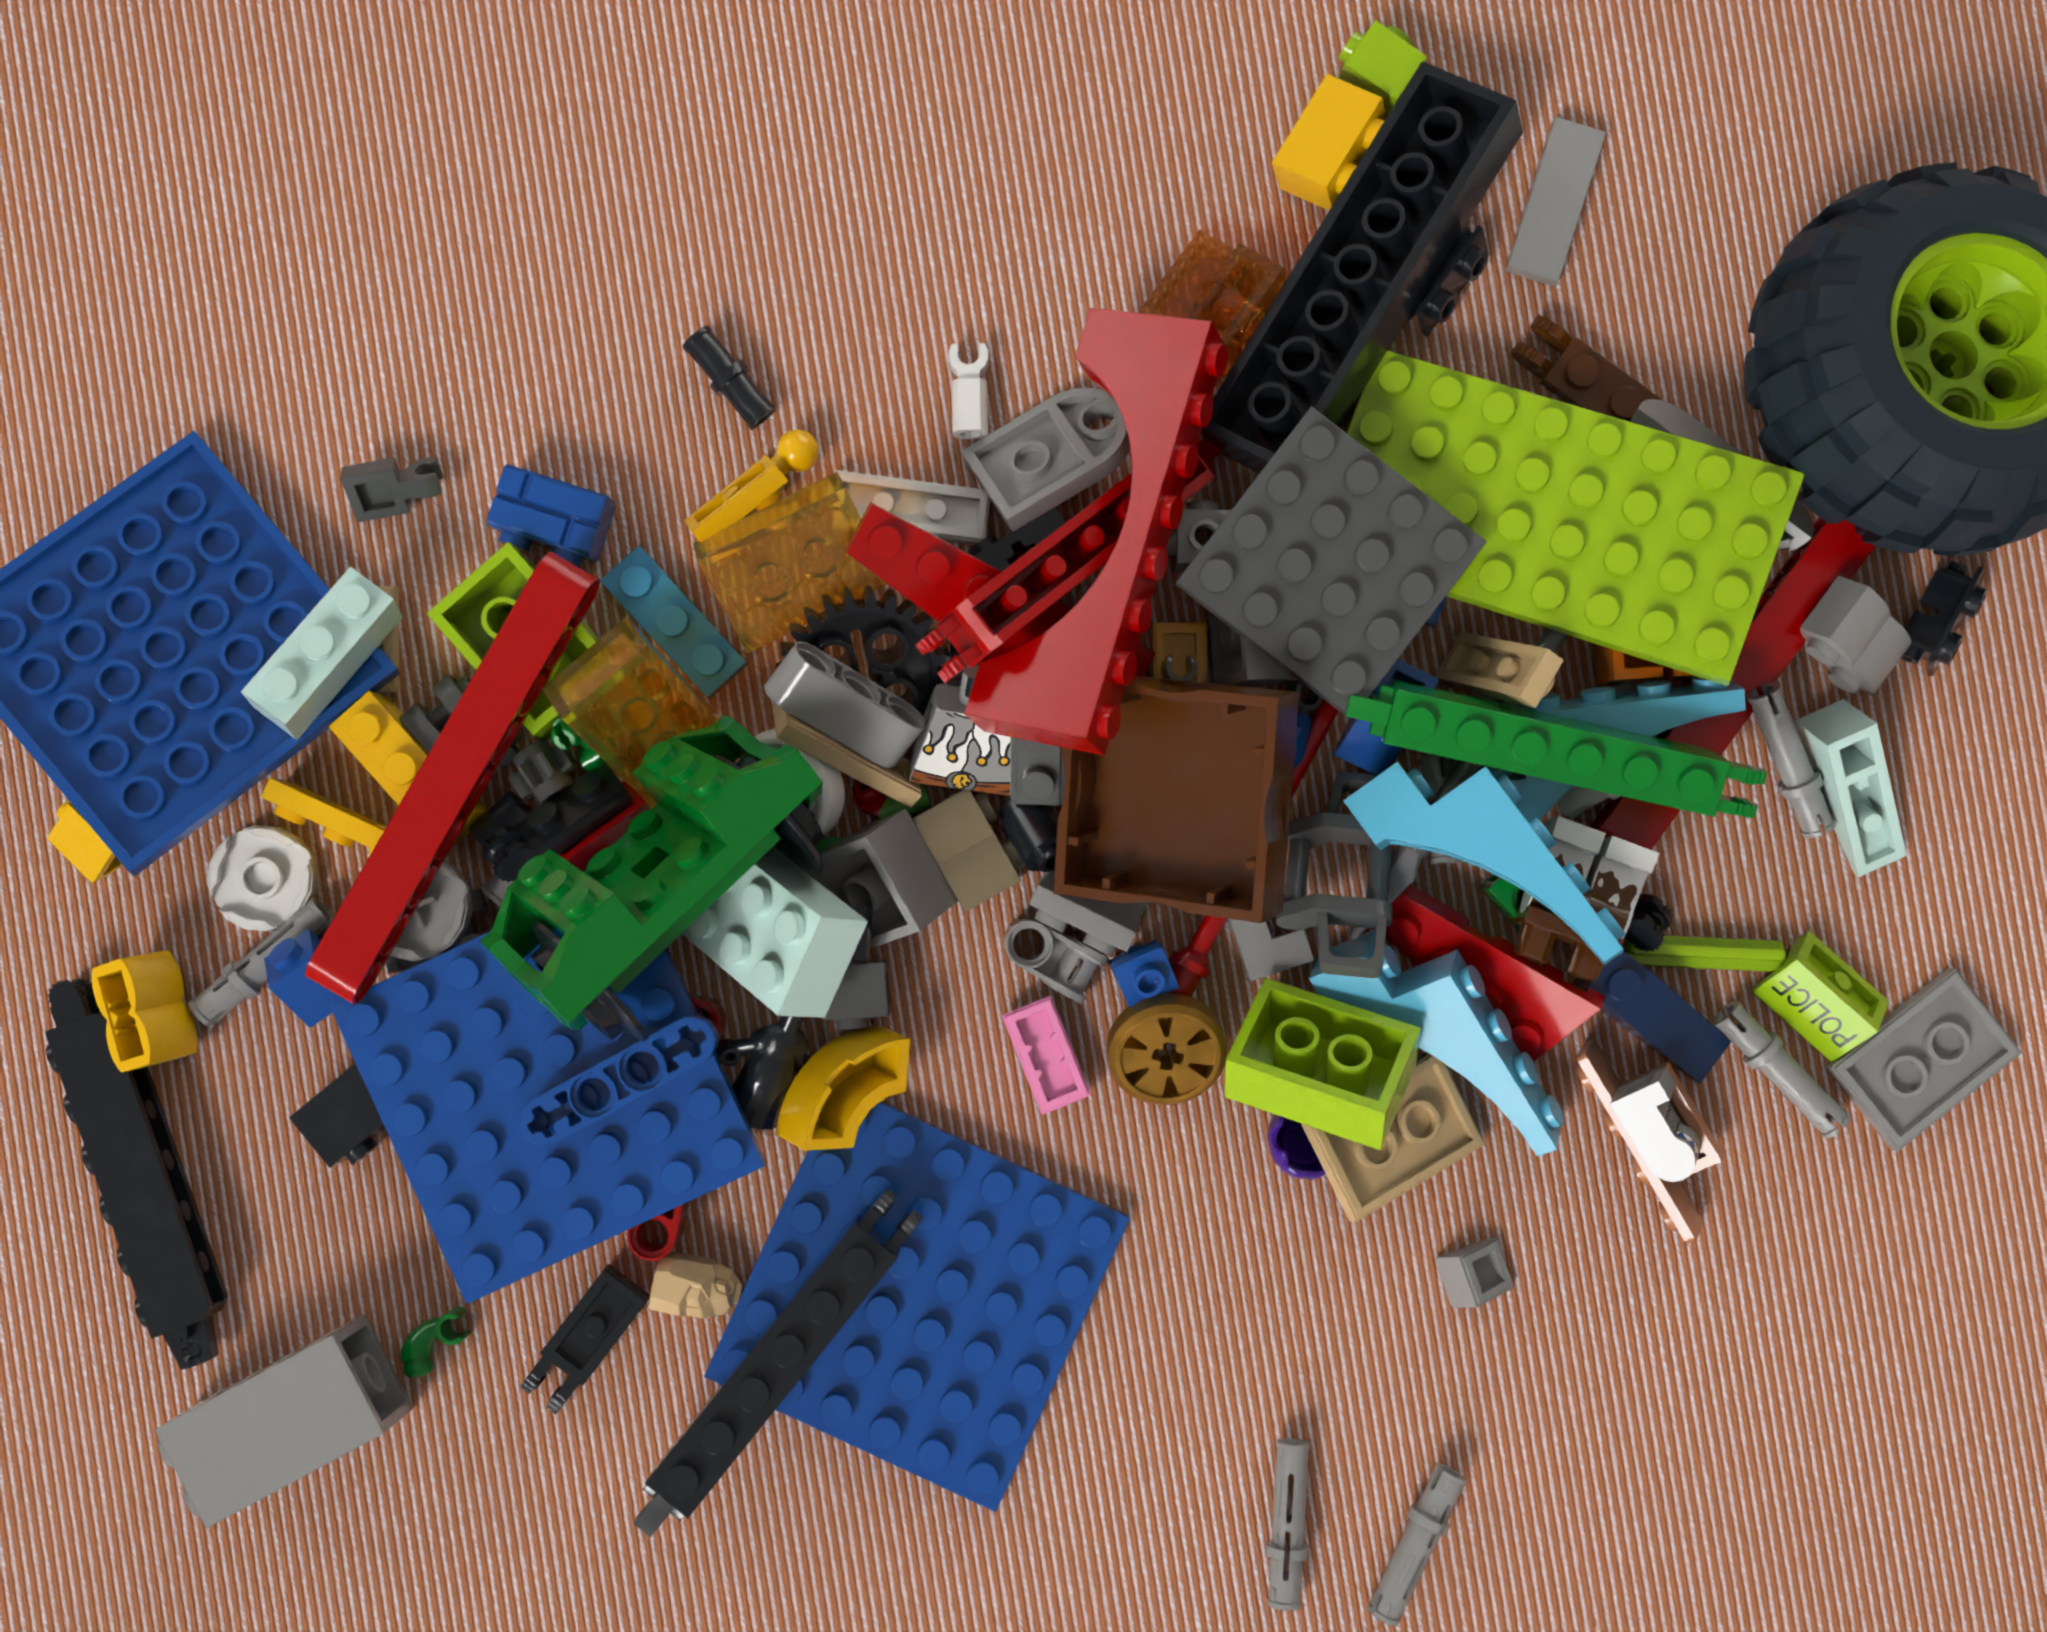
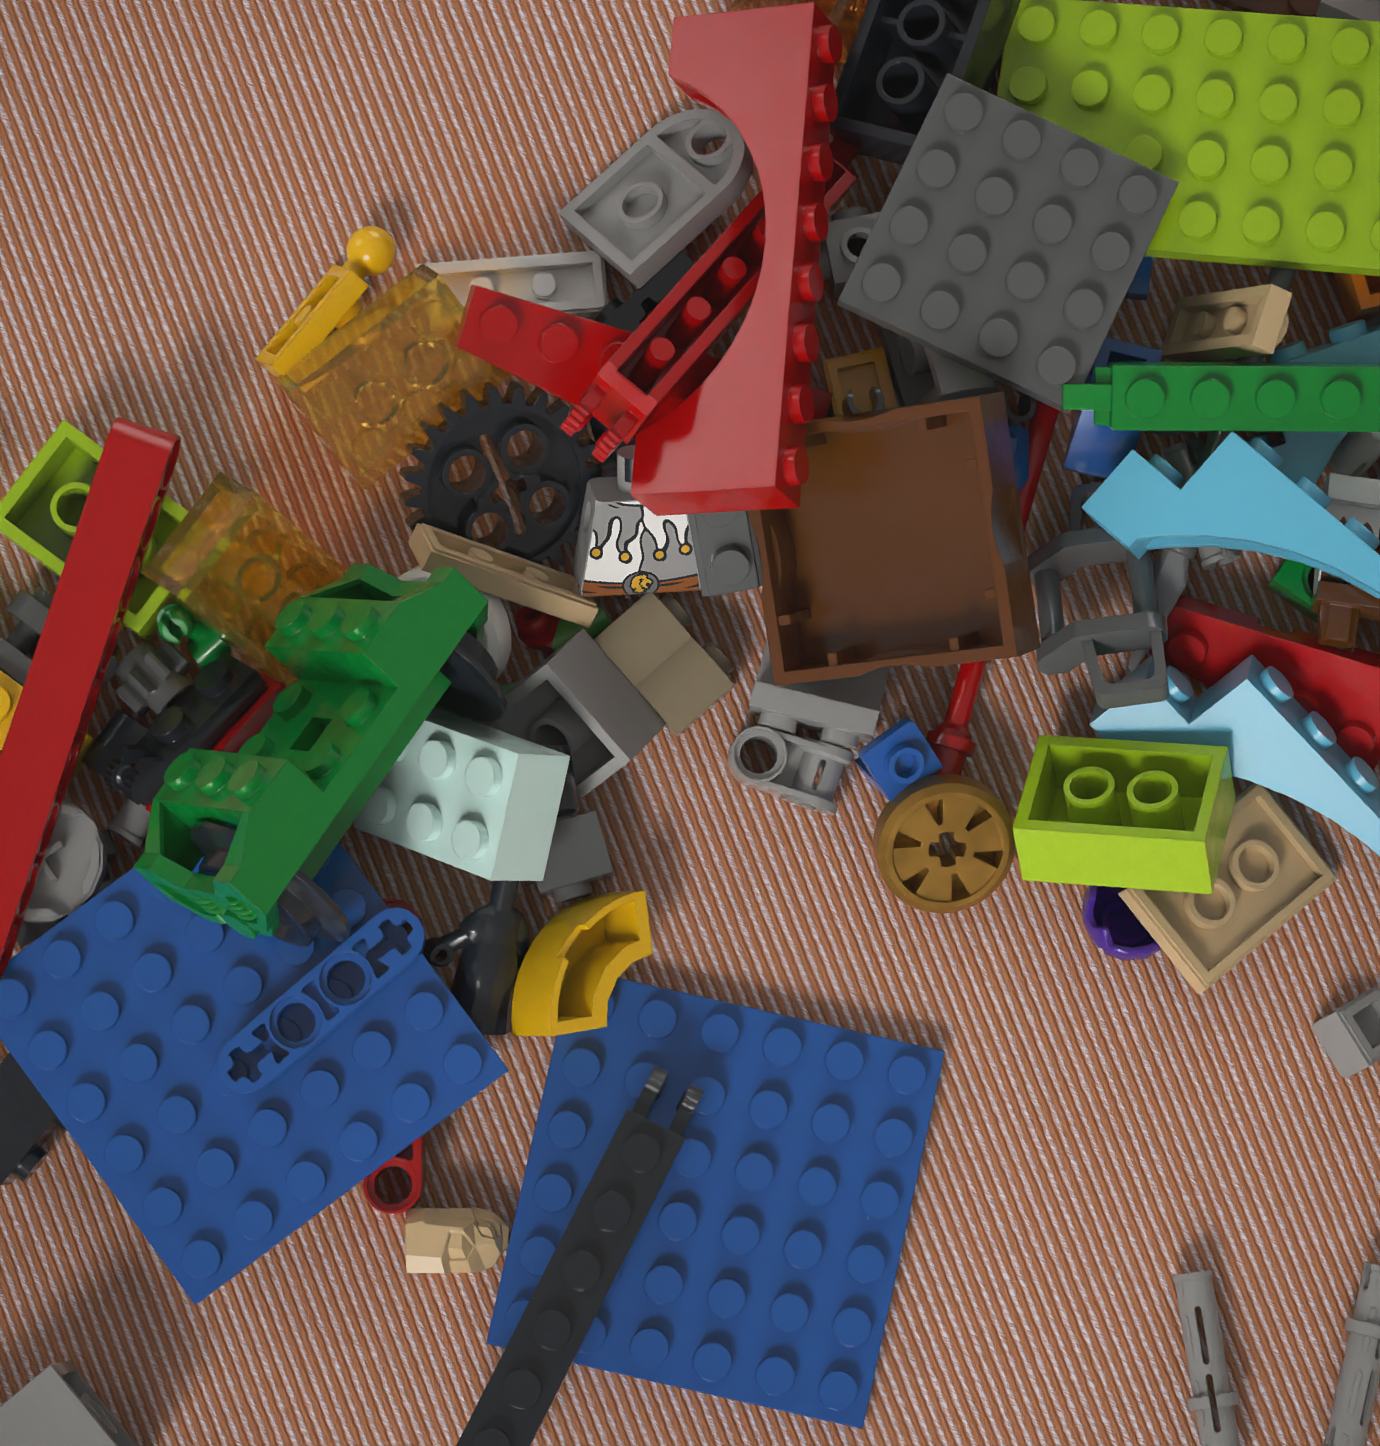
camera: 15 degrees left, 5 degrees down
(419, 1343) = (143, 1376): green arm -> none
(550, 514) = (100, 381): blue brick -> none
(588, 1334) = (339, 1323): black hinge -> none
(674, 622) = (225, 443): dark azure plate -> none
(729, 377) = (274, 184): black pin -> none
(844, 705) = (490, 521): light grey beam -> none
(969, 395) = (554, 147): white bar -> none
(1032, 834) = (735, 628): black brick -> none
(1046, 1054) = (806, 882): bright pink plate -> none
(1265, 954) = (1030, 711): light grey piece -> none

